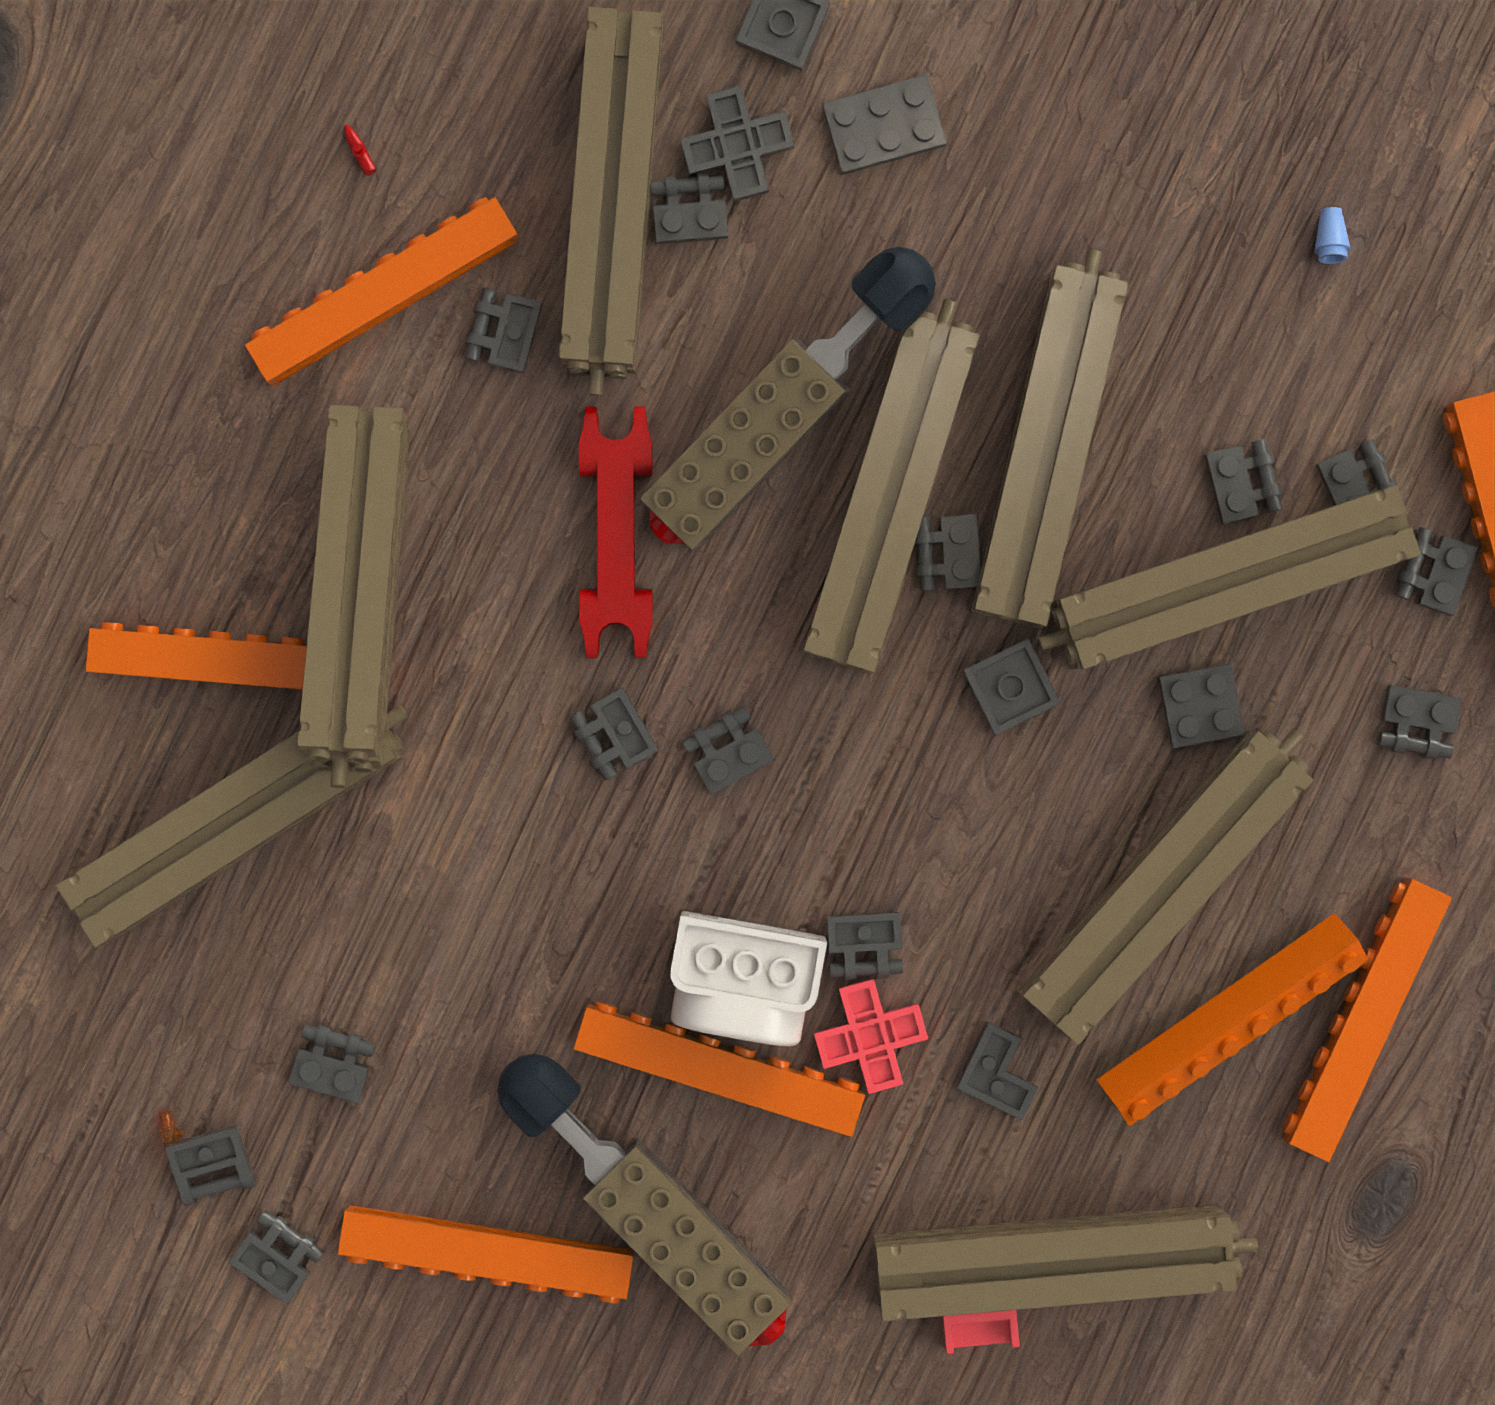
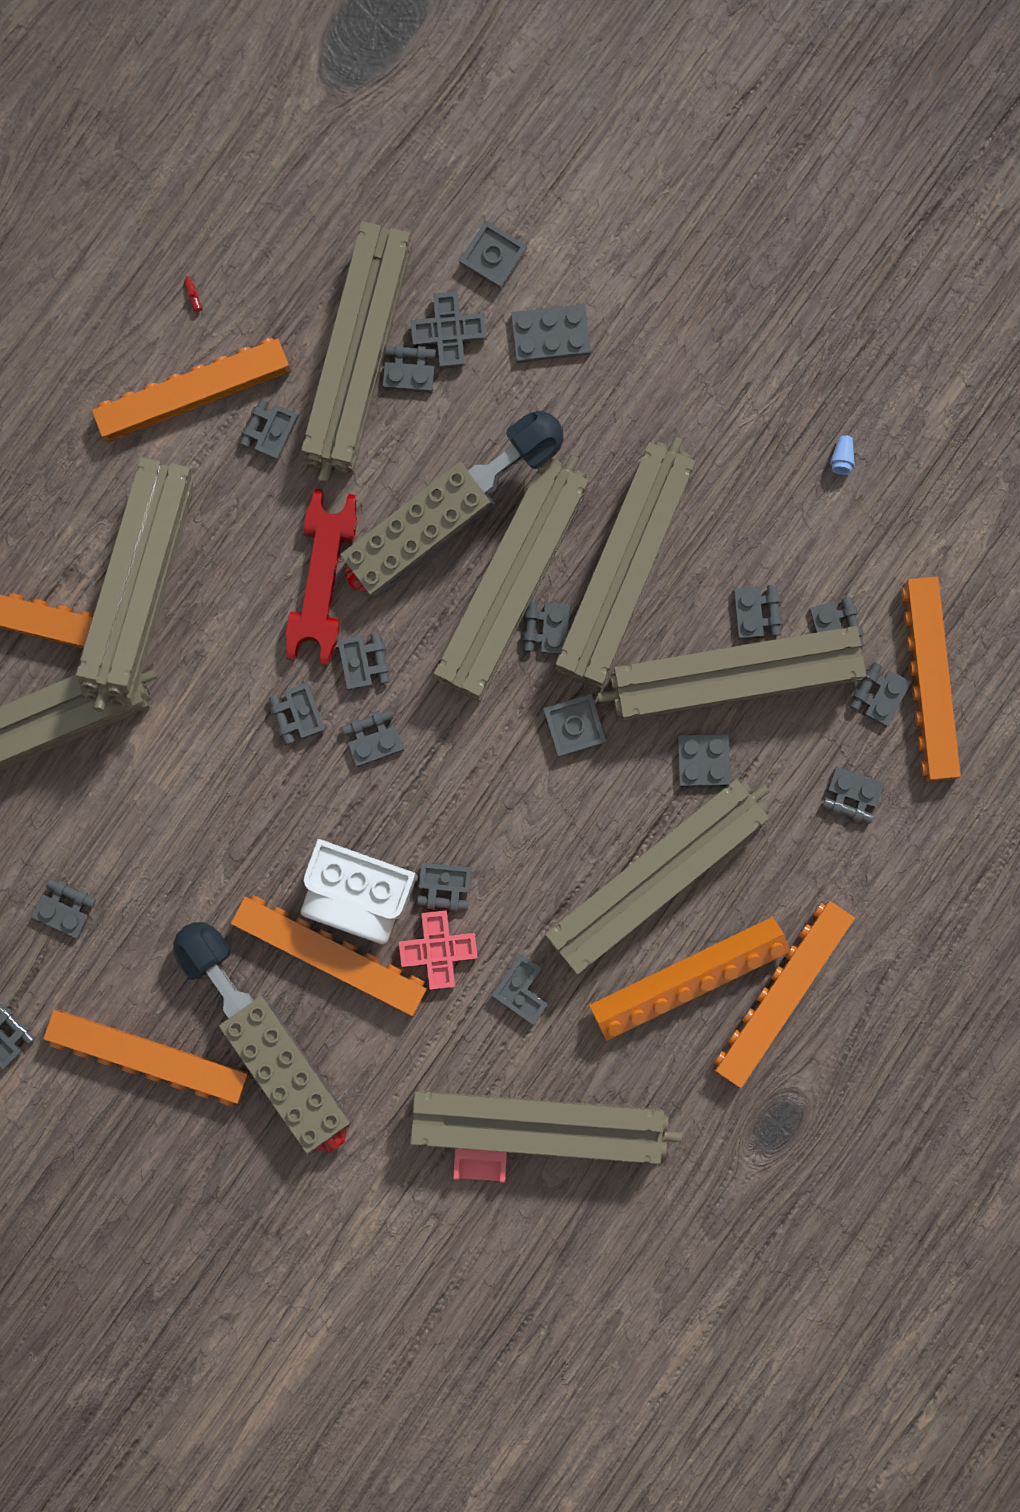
camera: 10 degrees right, 5 degrees down
(686, 649) = (355, 661): none -> dark grey plate

